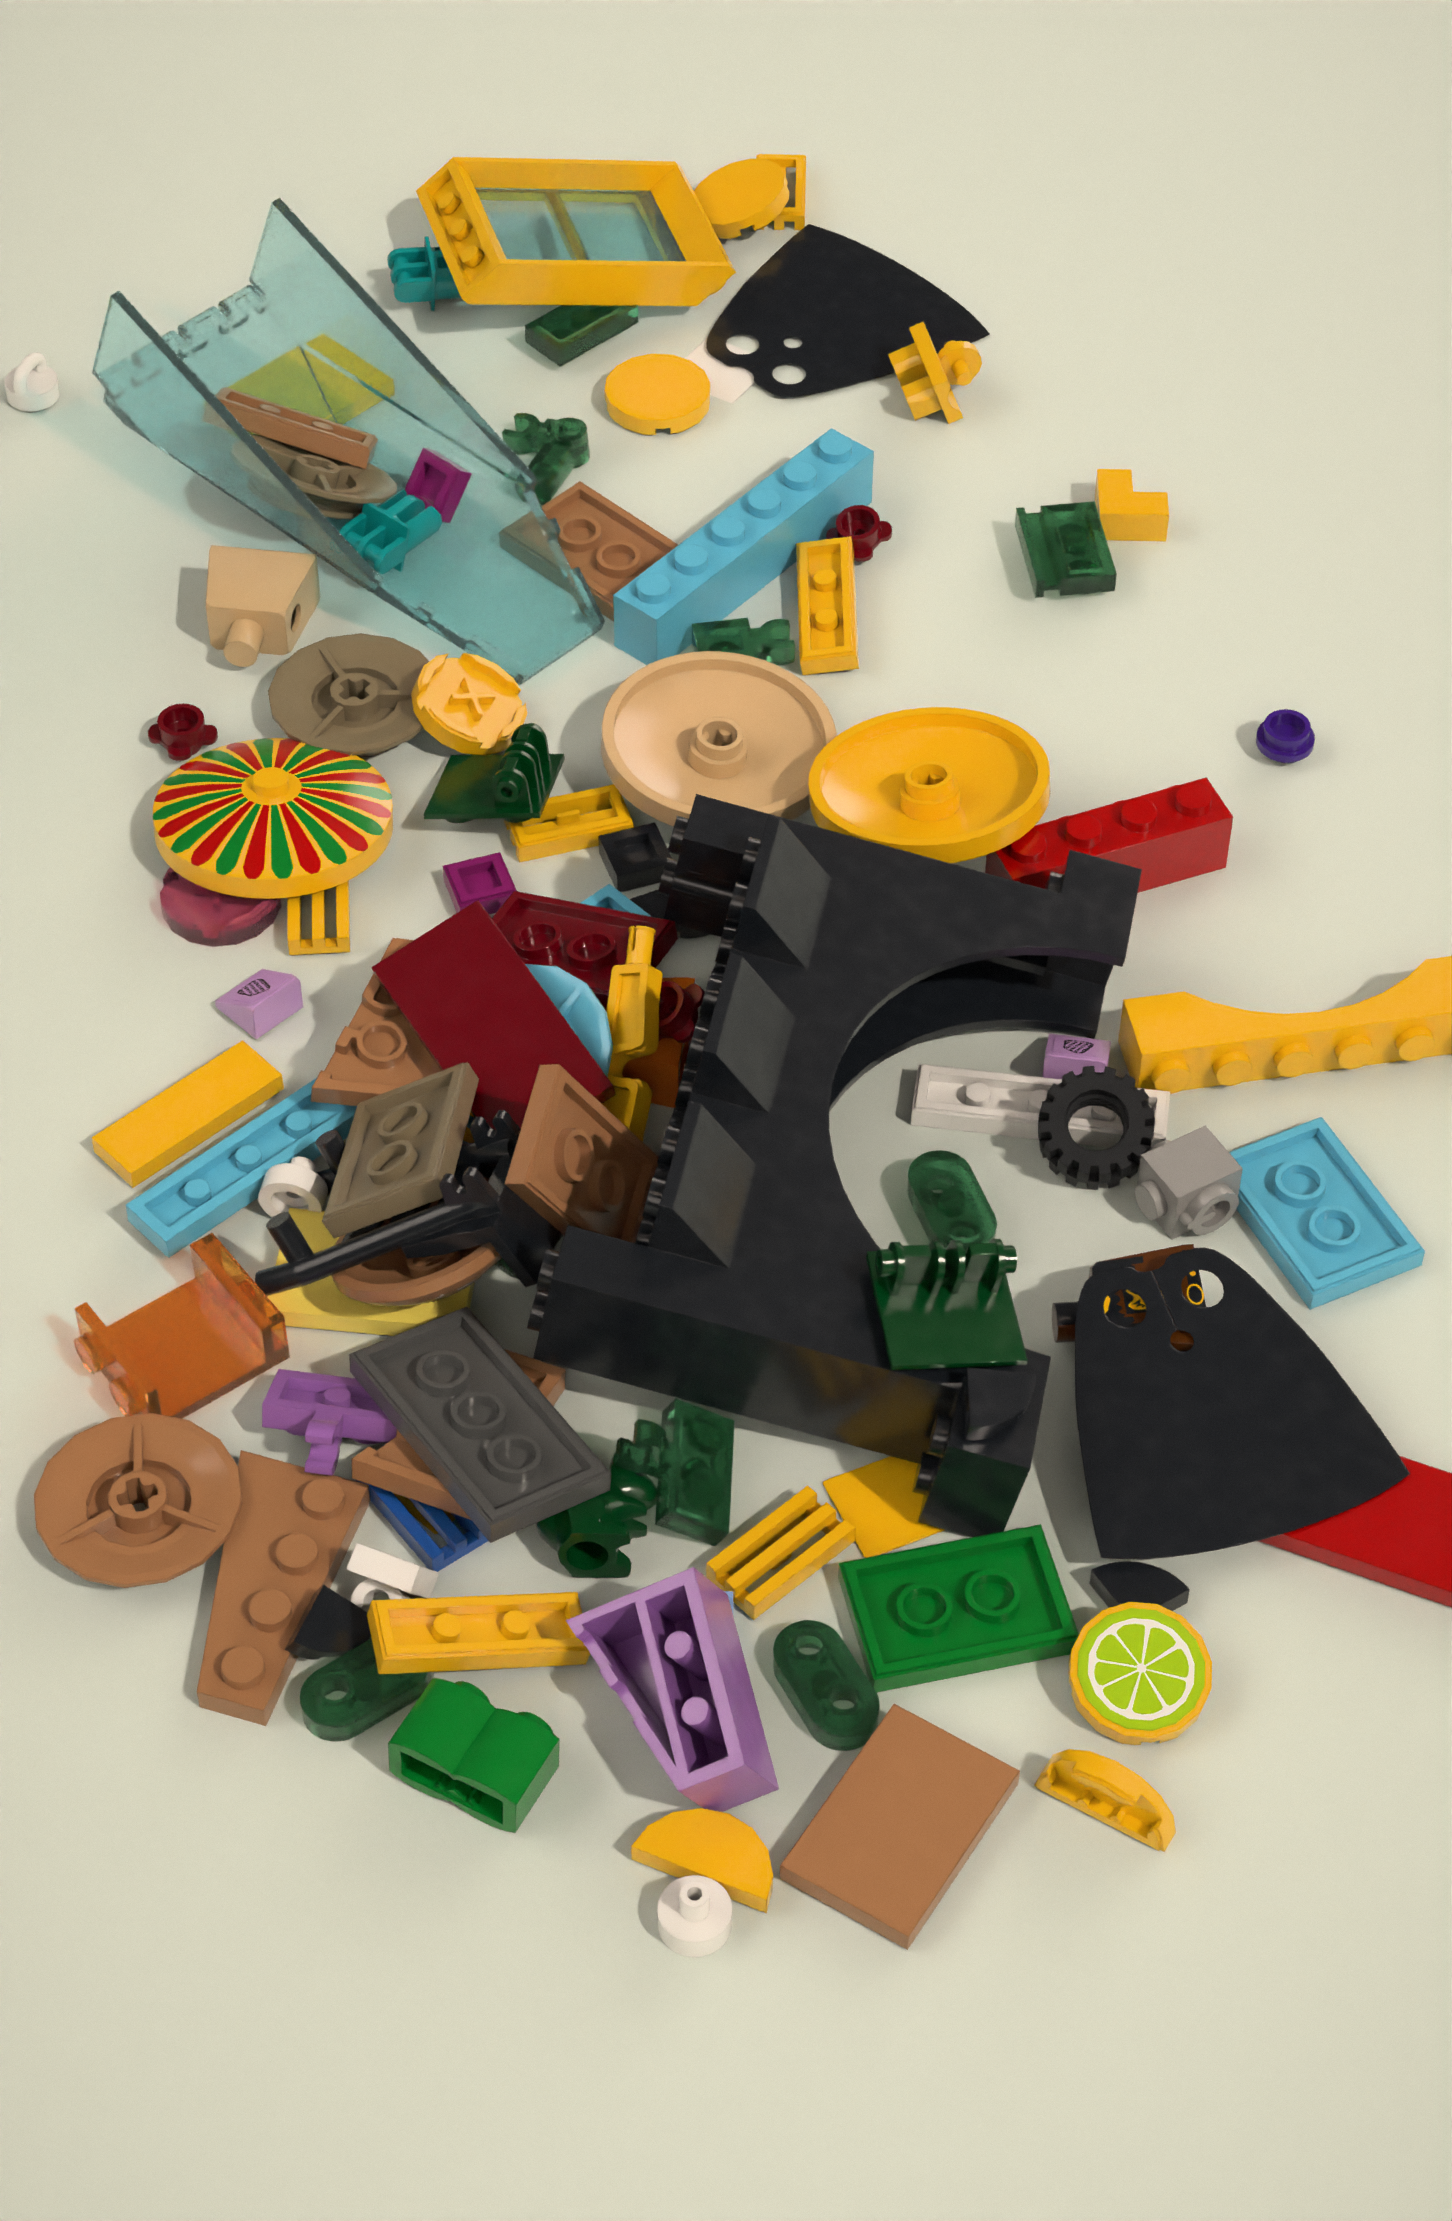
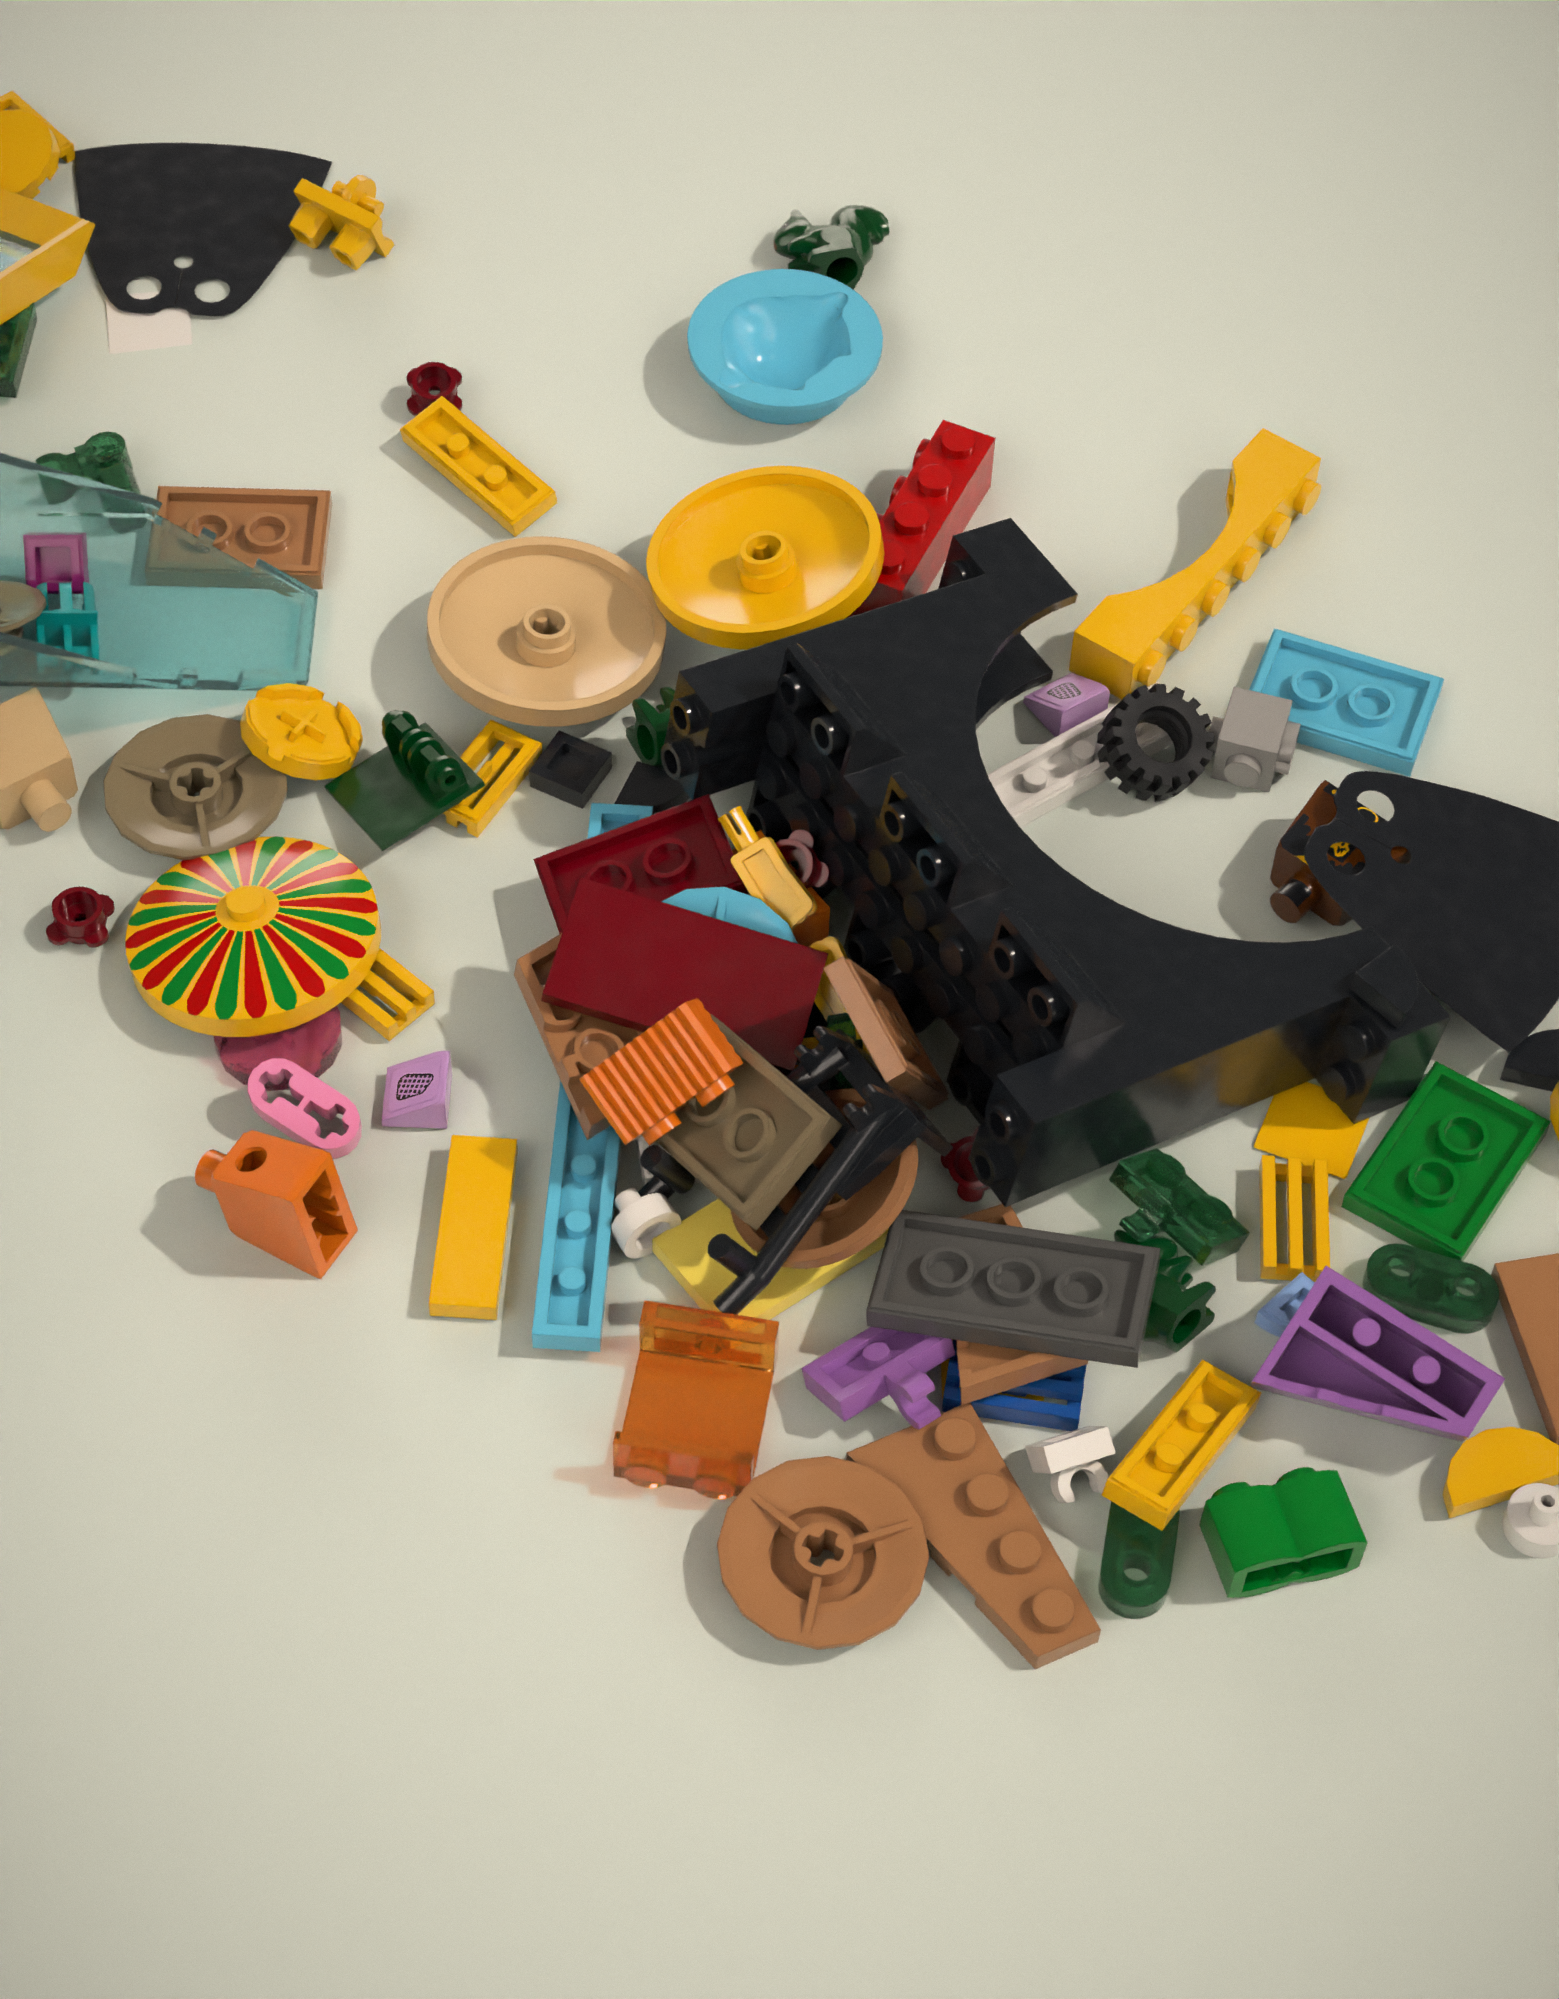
camera: 45 degrees left, 5 degrees up
(65, 978) = (281, 1199): none -> orange torso
(179, 948) = (313, 1096): none -> bright pink beam
(329, 1627) = (1073, 1527): black tile -> none
(375, 1072) = (662, 1072): none -> orange brick
(479, 879) = (478, 877): magenta tile -> none
(657, 393) = (128, 372): yellow tile -> none
(741, 548) = (368, 461): medium azure brick -> none
(768, 642) = (447, 542): clear green plate -> none
(947, 1304) = (1288, 936): dark green hinge -> none
(959, 1209) = (1121, 872): clear green plate -> none
(1066, 549) = (607, 305): clear green plate -> none
(1127, 513) = (611, 249): yellow piece -> none
(1162, 654) = (784, 344): none -> medium azure piece
(1285, 736) = (928, 355): dark purple plate -> none
(1300, 614) = (836, 248): none -> dark green animal

